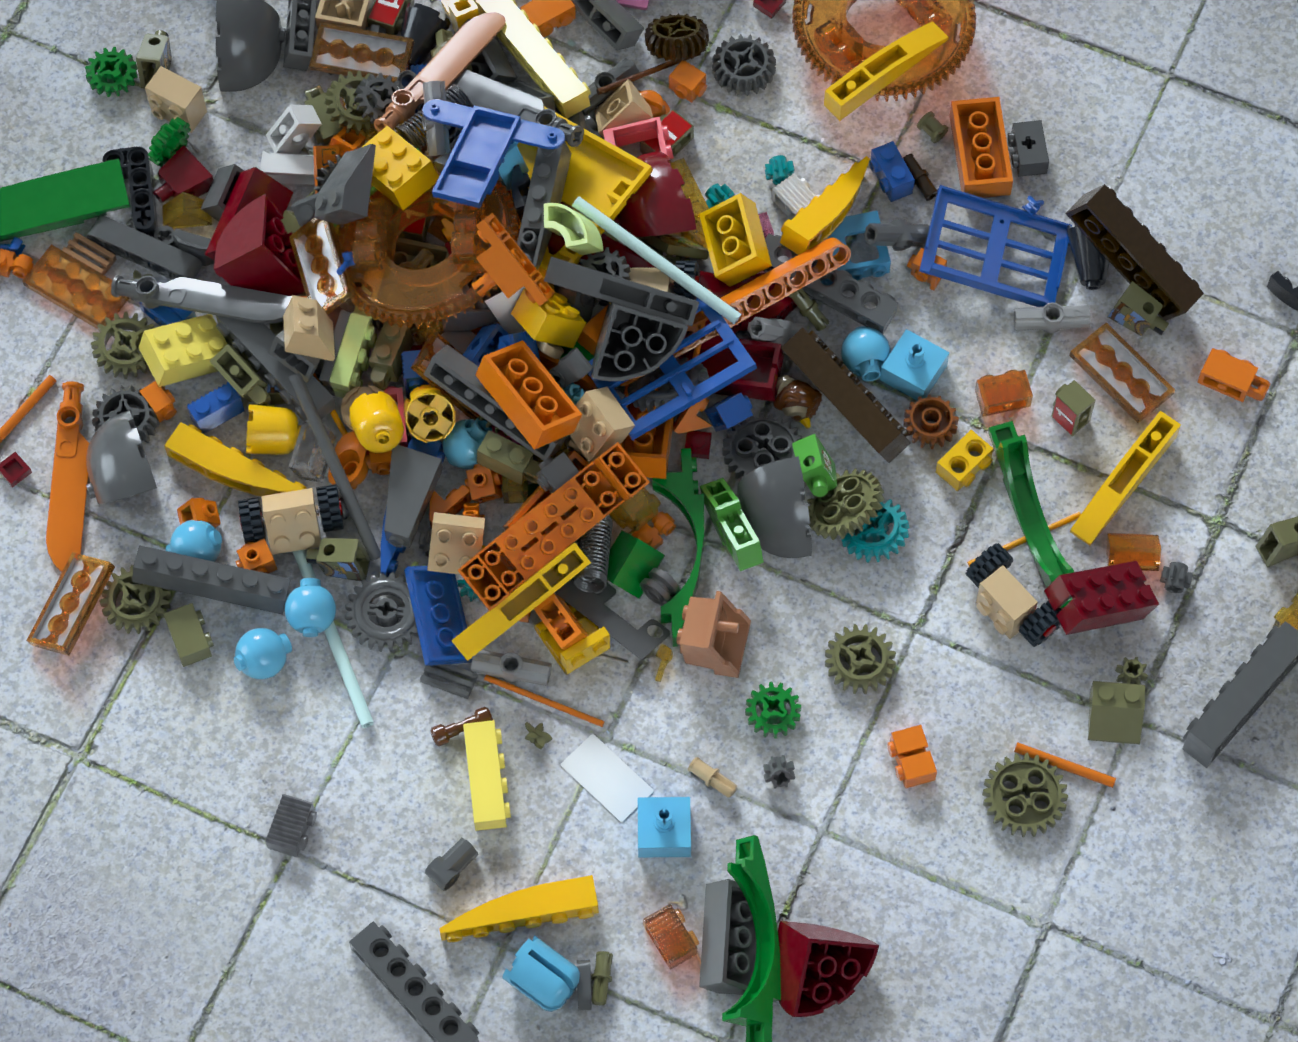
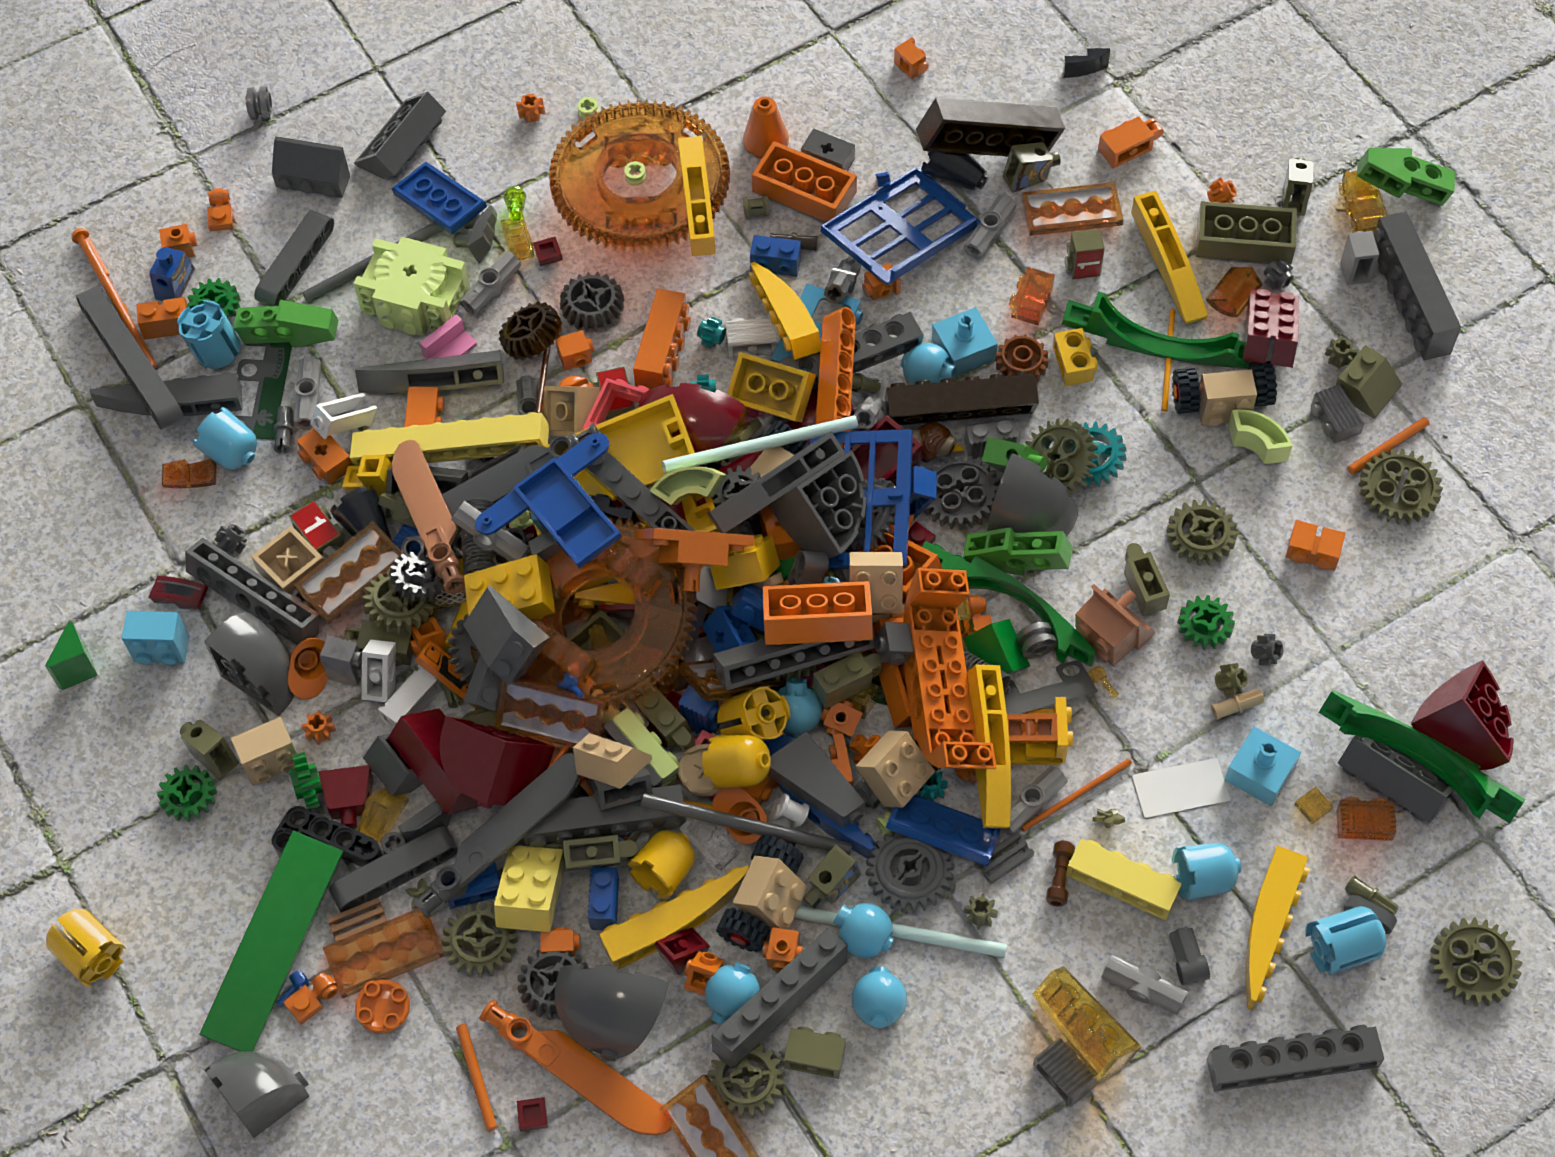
camera: 55 degrees left, 5 degrees down
(32, 314) = (382, 1006): none -> orange dish
(209, 486) = (680, 948): none -> dark red slope
(224, 122) = (318, 727): none -> orange gear
(266, 82) = (306, 669): none -> orange piece
(284, 93) = (342, 660): none -> flat silver brick
(335, 817) = (1086, 1024): none -> clear yellow wedge
(372, 492) = (788, 812): none -> white piece
(383, 680) = (980, 919): none -> olive gear
(404, 843) = (1144, 984): none -> light grey piece
(533, 833) = (1205, 870): none -> medium azure cylinder
(659, 889) = (1313, 805): none -> clear yellow tile
(735, 139) = (662, 340): none -> orange brick
(735, 763) = (1231, 679): none -> olive gear
(776, 638) = (1145, 580): none -> olive brick
(836, 442) = (977, 435): none -> flat silver brick
(873, 5) = (635, 179): none -> yellowish green bush
(991, 650) = (1260, 435): none -> yellowish green brick
(1014, 86) = (764, 127): none -> orange cone
(1063, 703) = (1336, 414): none -> flat silver brick
(1184, 152) = (910, 58): none -> orange brick
(1199, 525) = (1246, 232): none -> olive brick
(1230, 483) = (1222, 191): none -> orange gear
(1241, 632) = (1359, 257): none -> light grey brick

